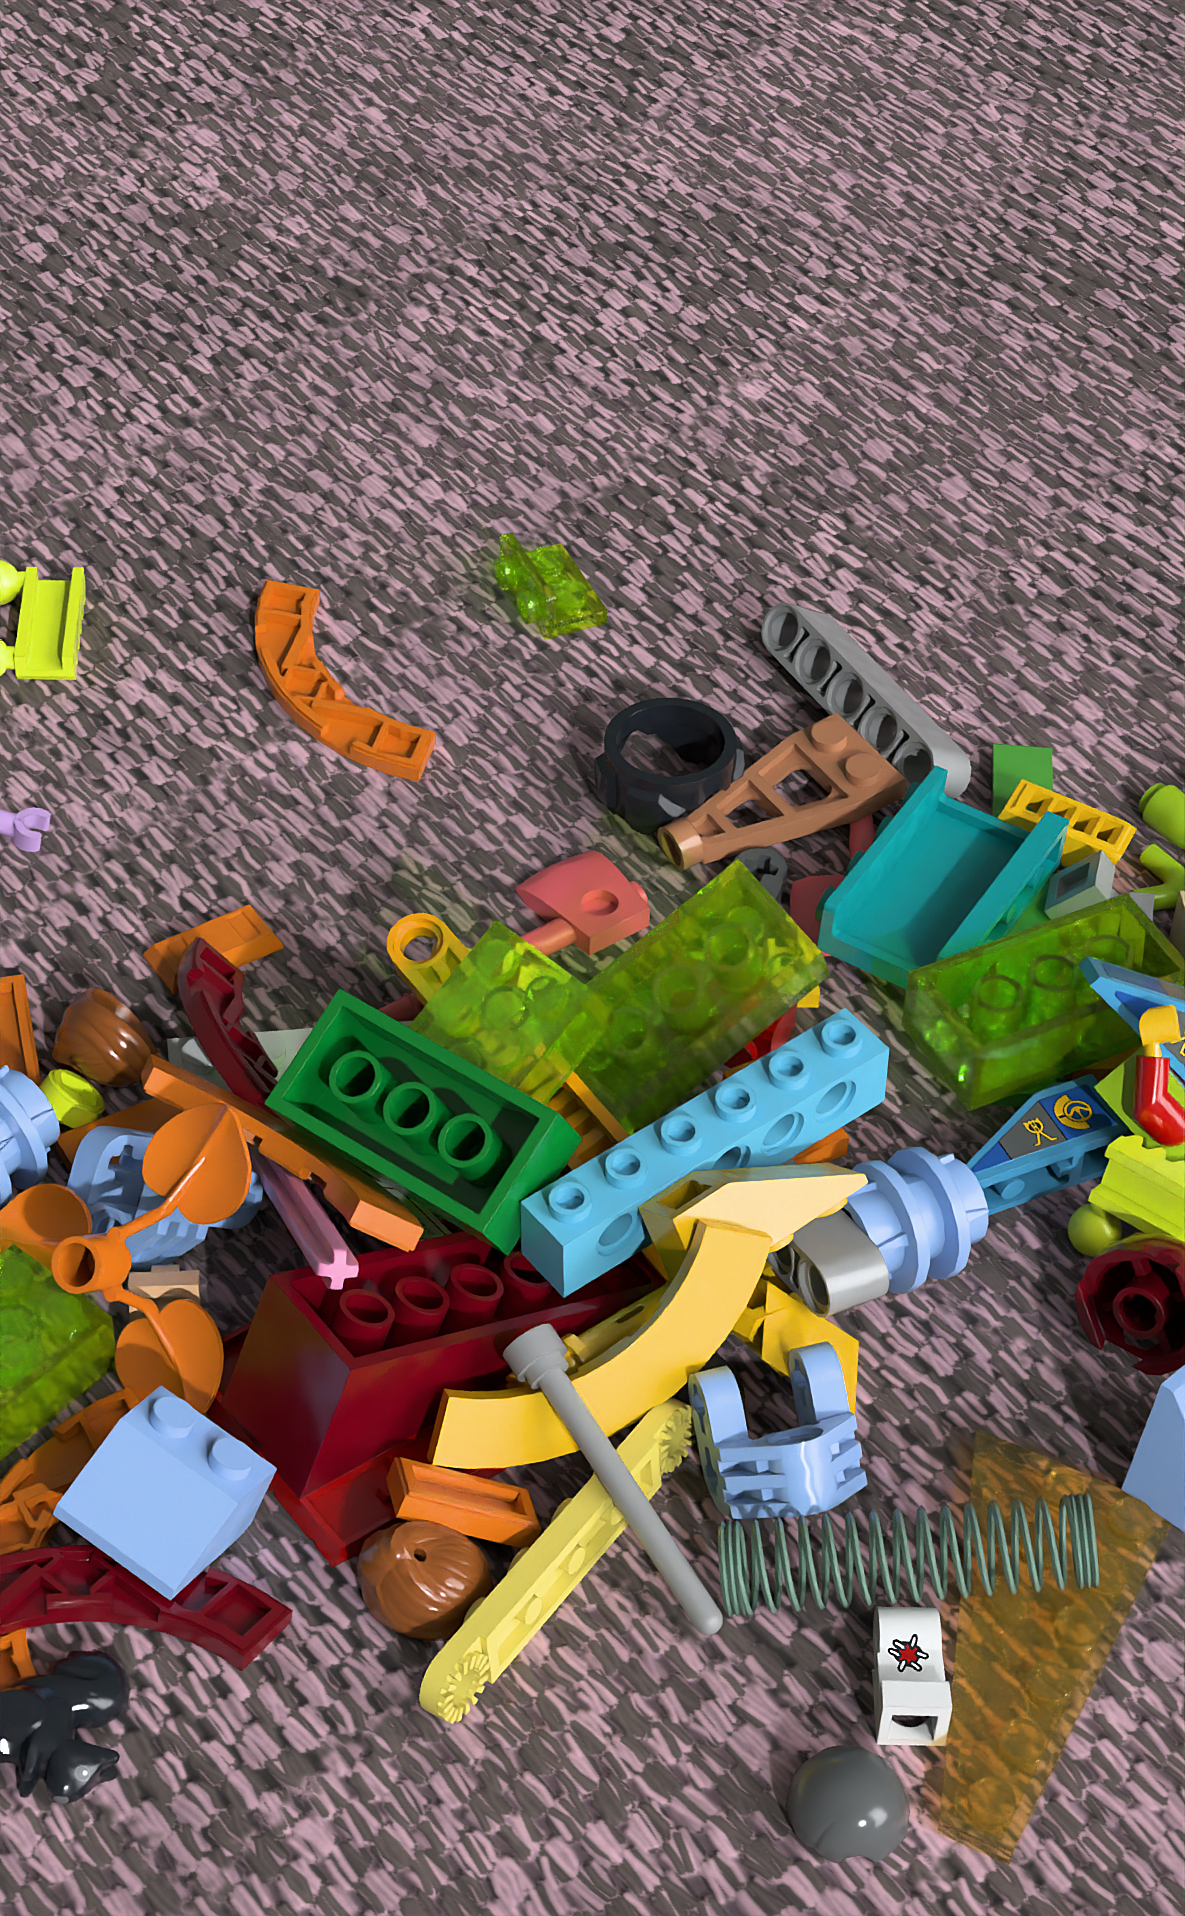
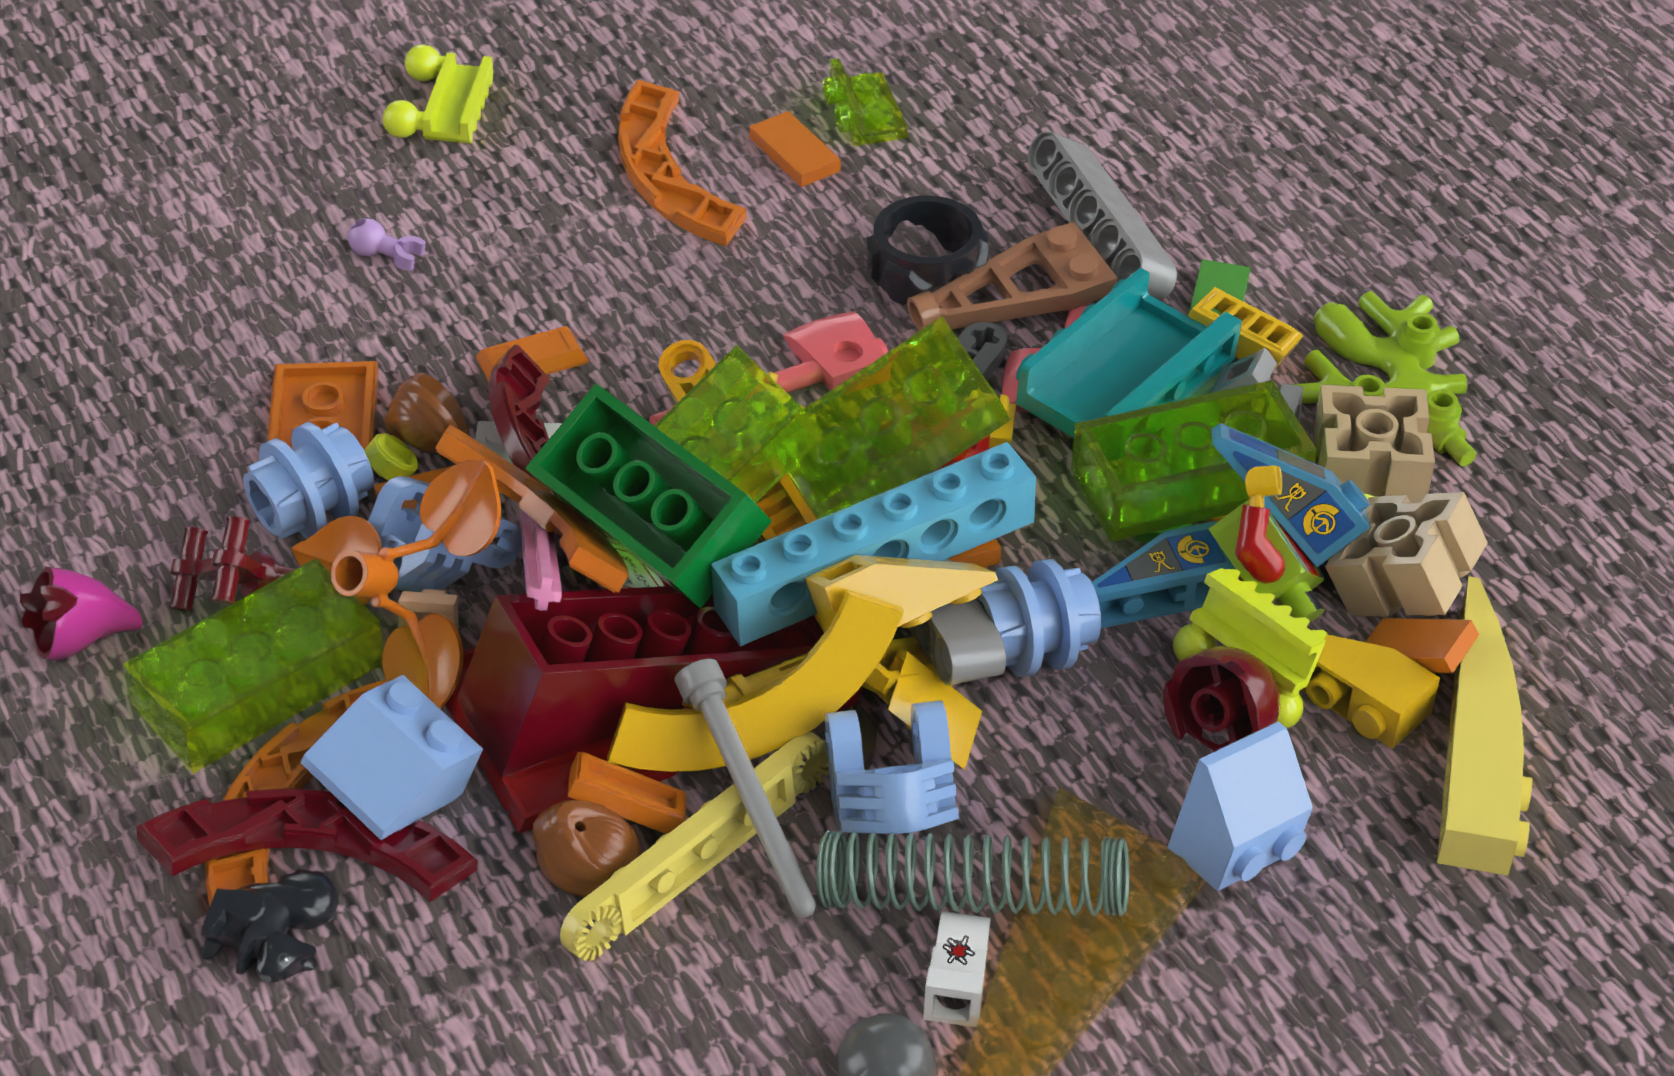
camera: 10 degrees right, 0 degrees up
(476, 649) = (795, 148): none -> orange tile

